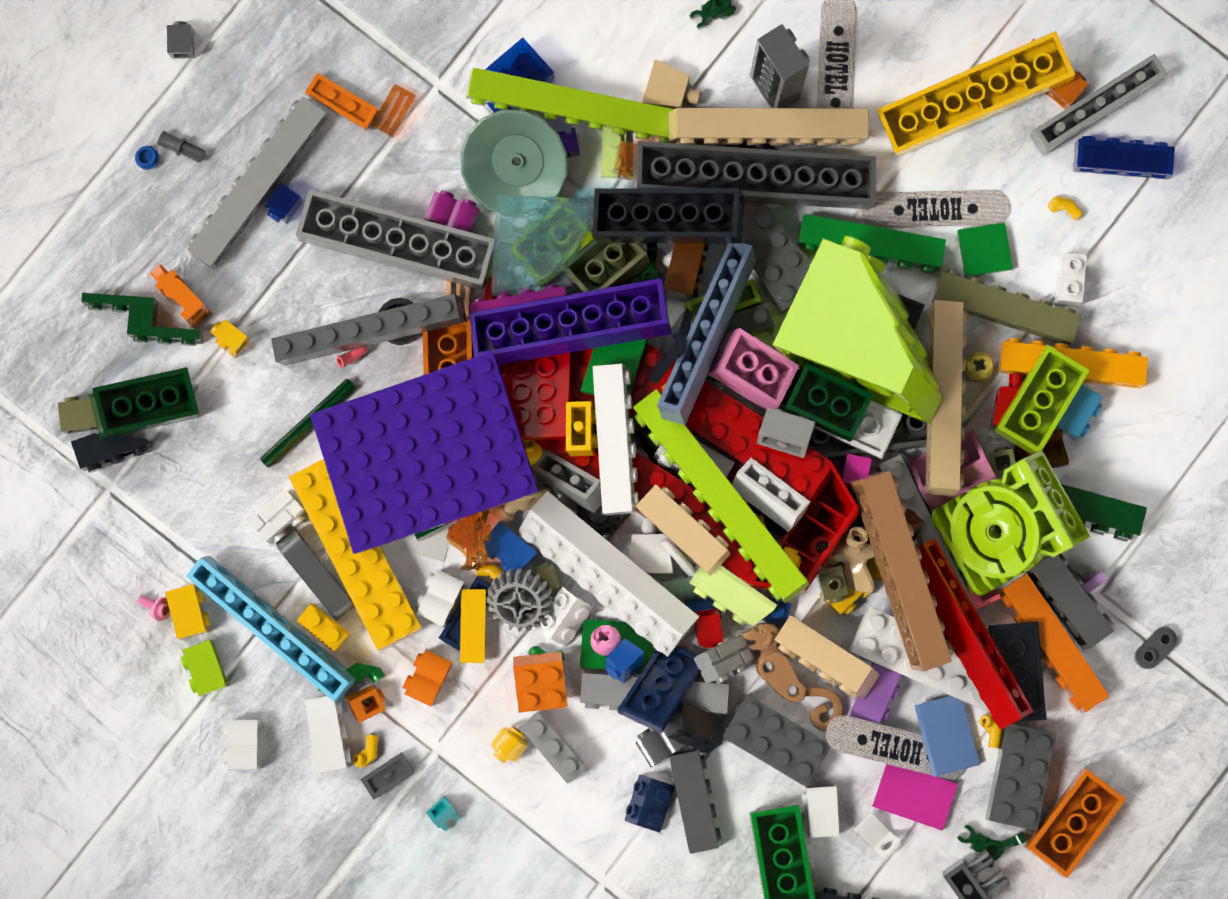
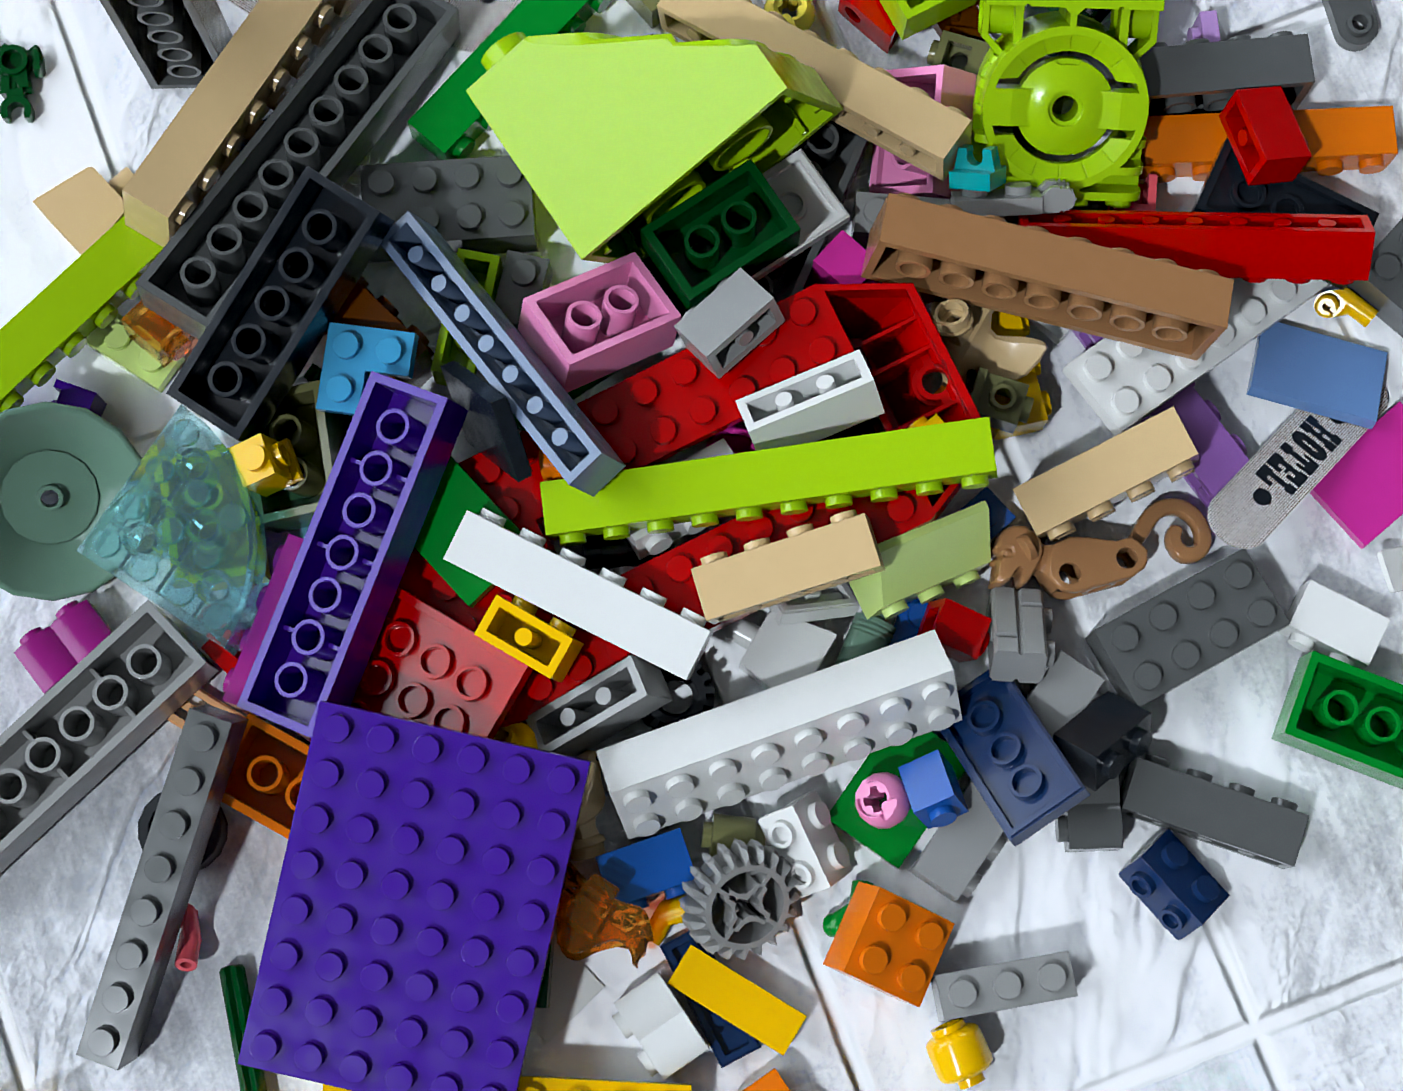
camera: 60 degrees left, 5 degrees down
(591, 255) = (267, 464): none -> yellow brick
(665, 263) = (353, 354): none -> dark azure plate
(936, 507) = (976, 175): none -> teal tile
(936, 533) = (1017, 199): none -> light grey hinge
(1048, 639) = (1265, 135): none -> red brick

